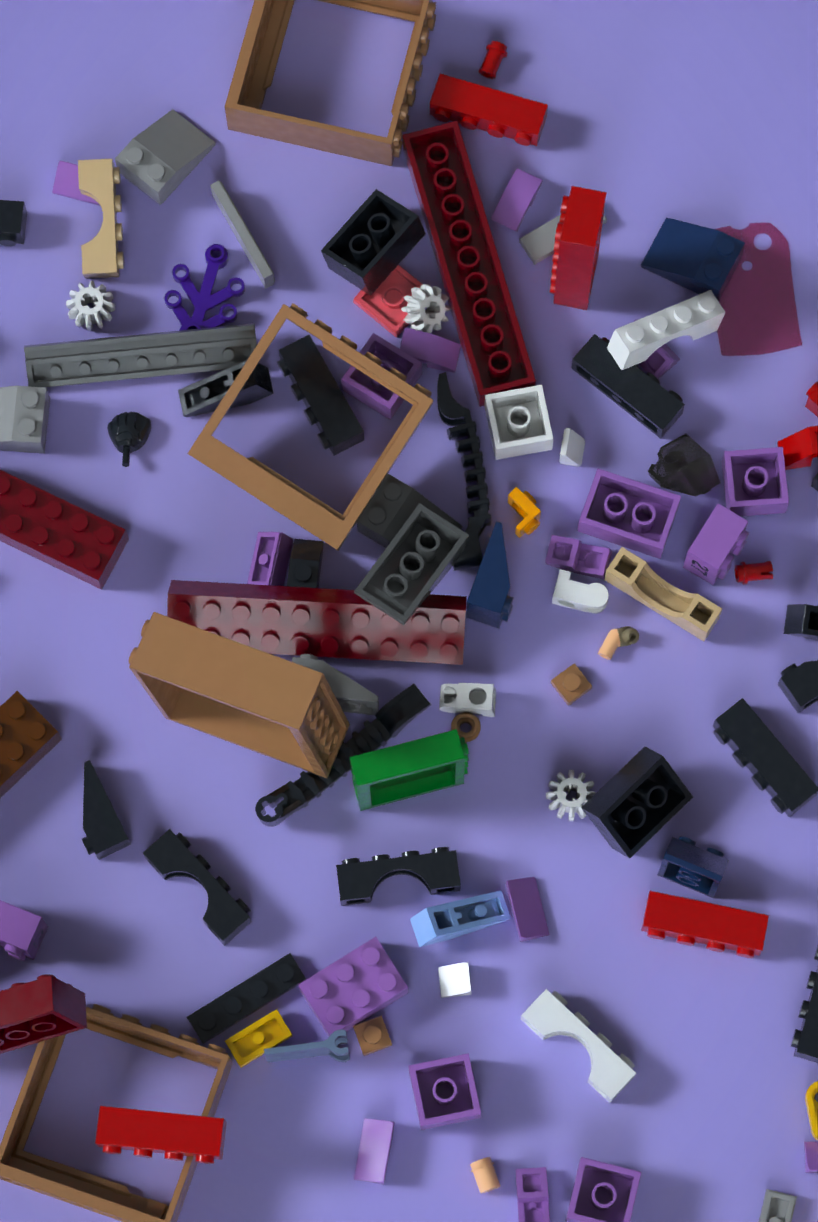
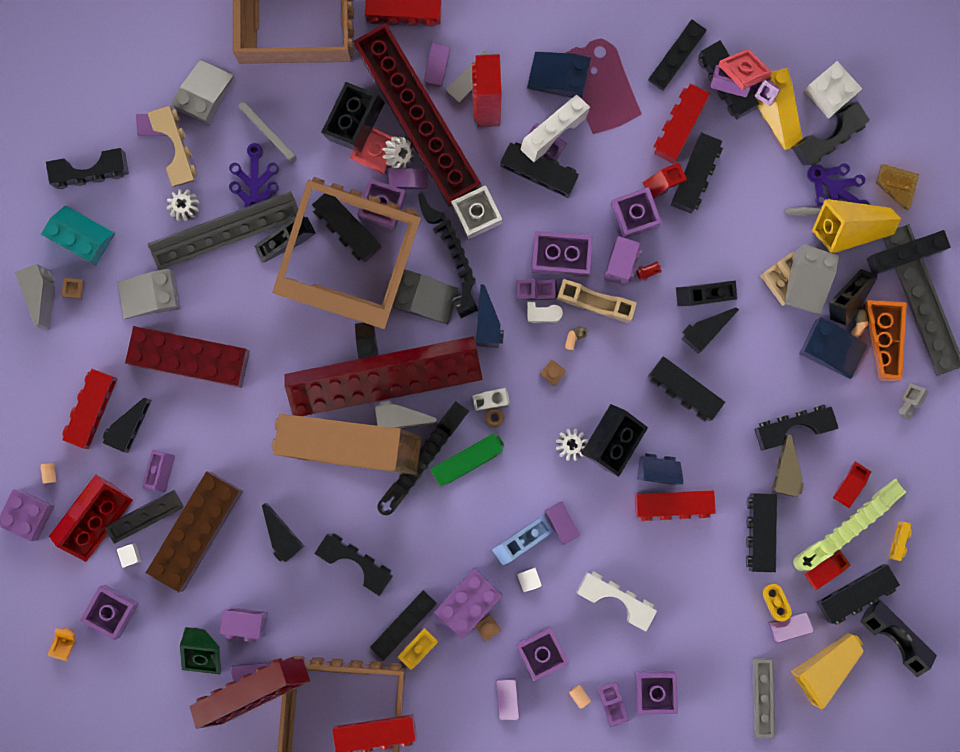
camera: 15 degrees left, 10 degrees up
(129, 433) = (231, 282): black piece -> none
(270, 559) = (343, 342): medium lavender slope -> none
(327, 1047) = (464, 645): sand blue flag -> none
(412, 564) = (434, 327): dark grey slope -> none
(435, 870) = (454, 533): black arch -> none
(525, 506) = (494, 265): light orange bracket -> none
(572, 448) = (514, 220): white slope -> none
(684, 467) = (588, 215): clear smoke slope -> none

